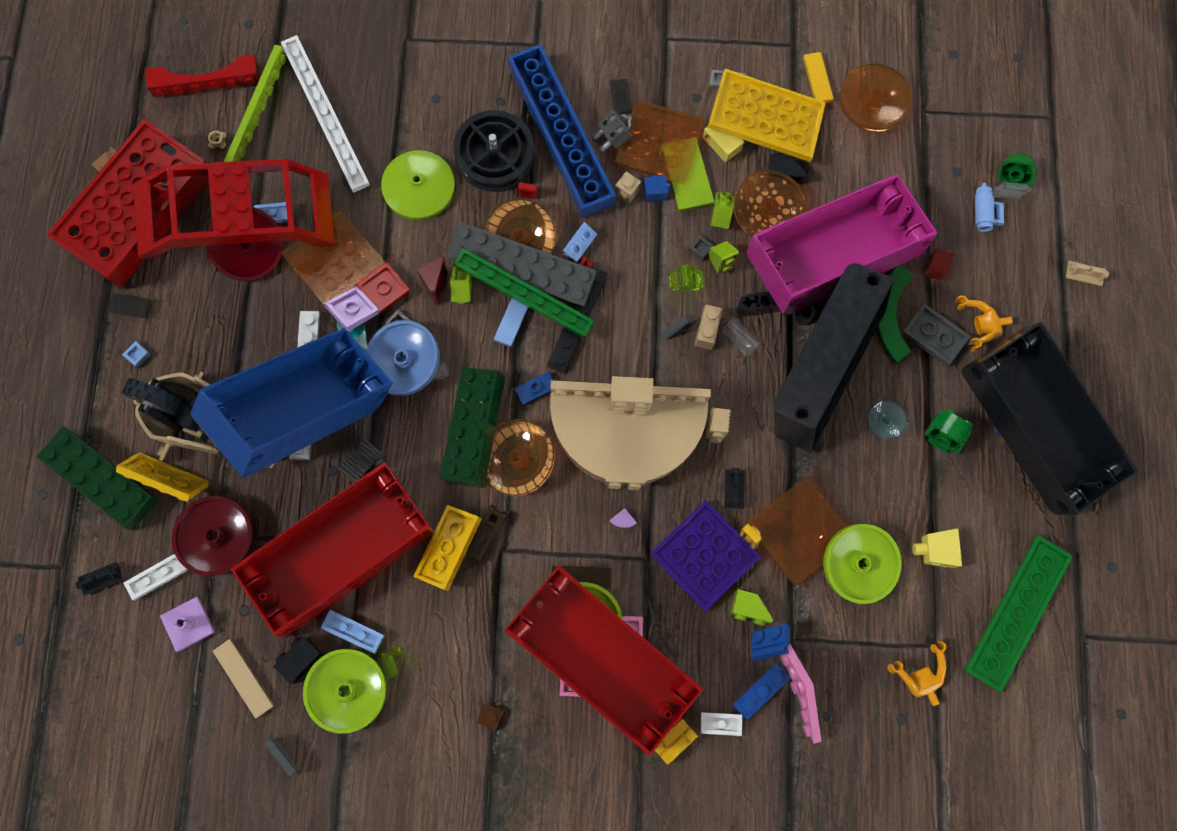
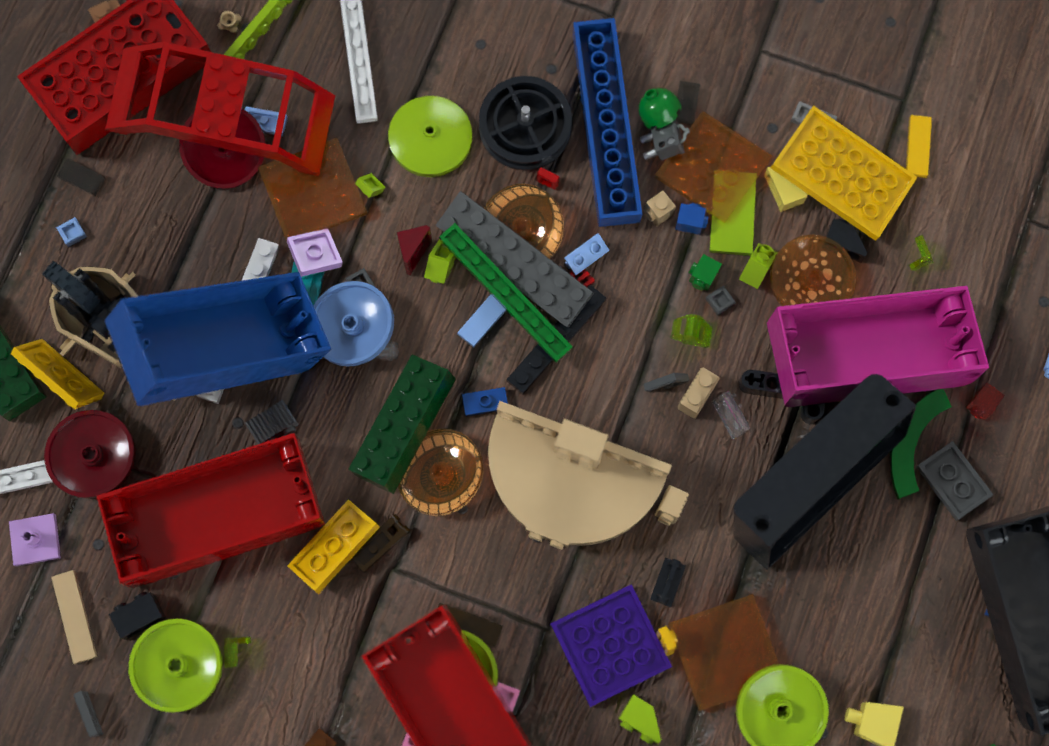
camera: 20 degrees right, 0 degrees up
(352, 631) = (204, 604): light blue plate -> none
(381, 240) = (370, 185): none -> lime plate
(383, 287) = (356, 239): red plate -> none
(600, 106) = (658, 107): none -> green cylinder
(623, 520) = (534, 577): lavender tile -> none
(680, 229) = (704, 272): none -> green brick
(723, 257) = (741, 319): lime slope -> none
(851, 160) = (926, 256): none -> clear neon green tile
(875, 97) = (976, 188): clear orange dish -> none
(895, 416) = (874, 553): clear light blue dish -> none
(948, 431) = (930, 595): green brick -> none
(988, 323) = (1015, 486): light orange piece -> none

